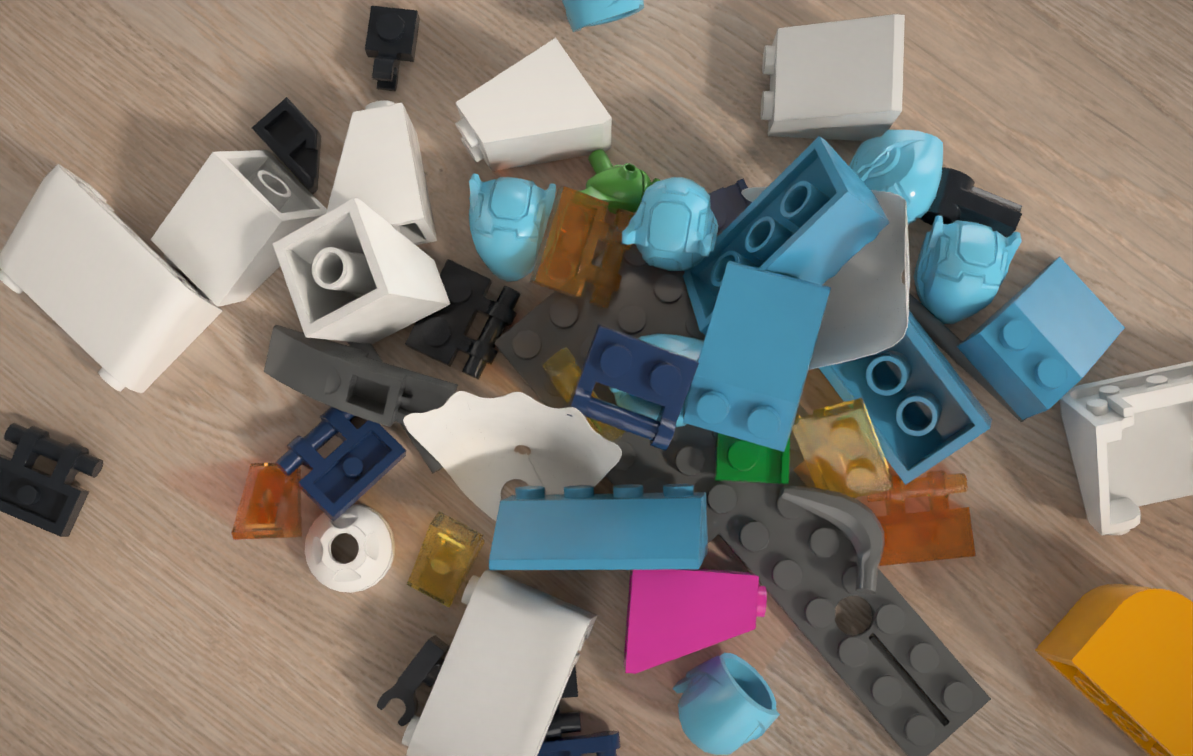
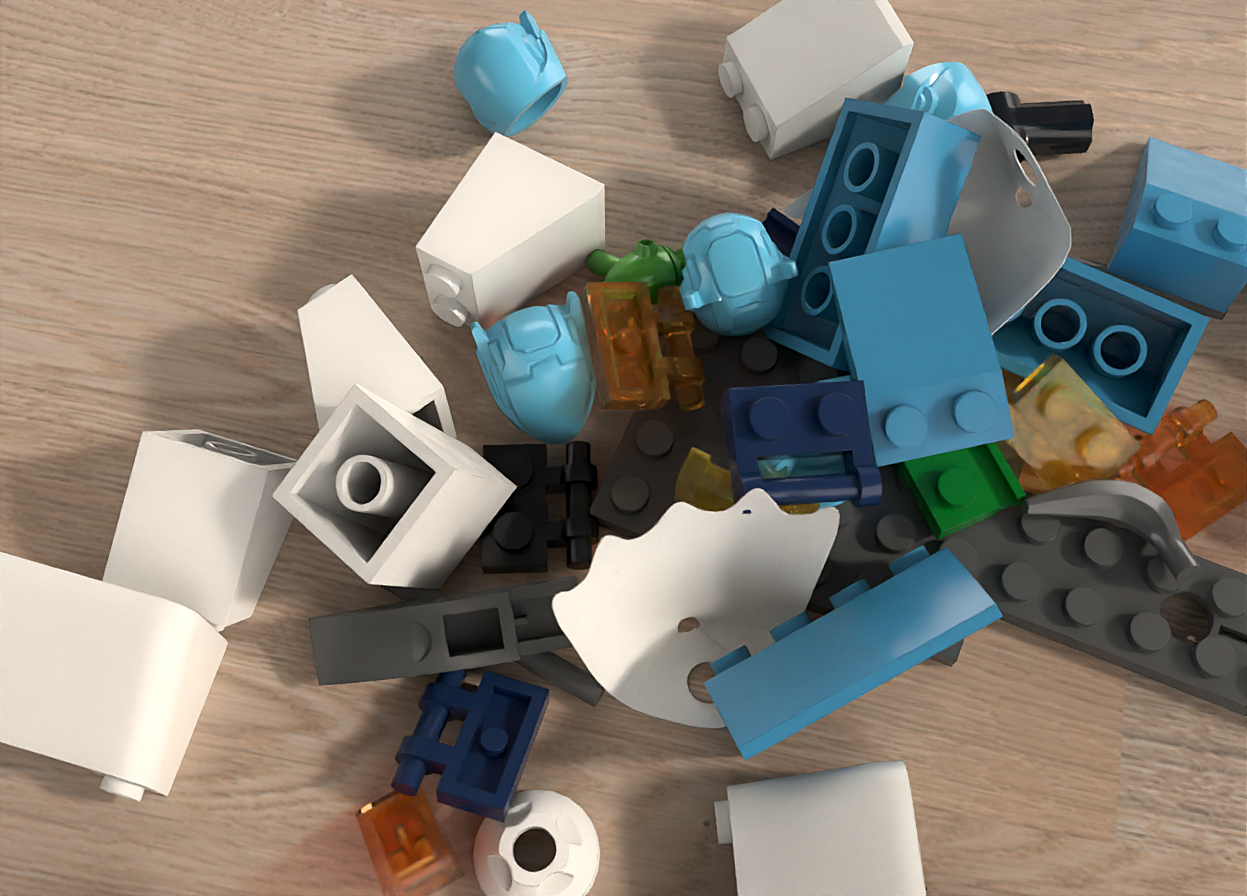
camera: 30 degrees left, 15 degrees down
(293, 141) = (225, 404): black tile -> none
(389, 40) = (292, 245): black plate -> none
(445, 559) = (670, 797): clear yellow slope -> none
(687, 611) = (995, 700): dark pink slope -> none
(724, 704) = (1111, 797): medium azure helmet -> none
(962, 268) = (1080, 174): medium azure helmet -> none

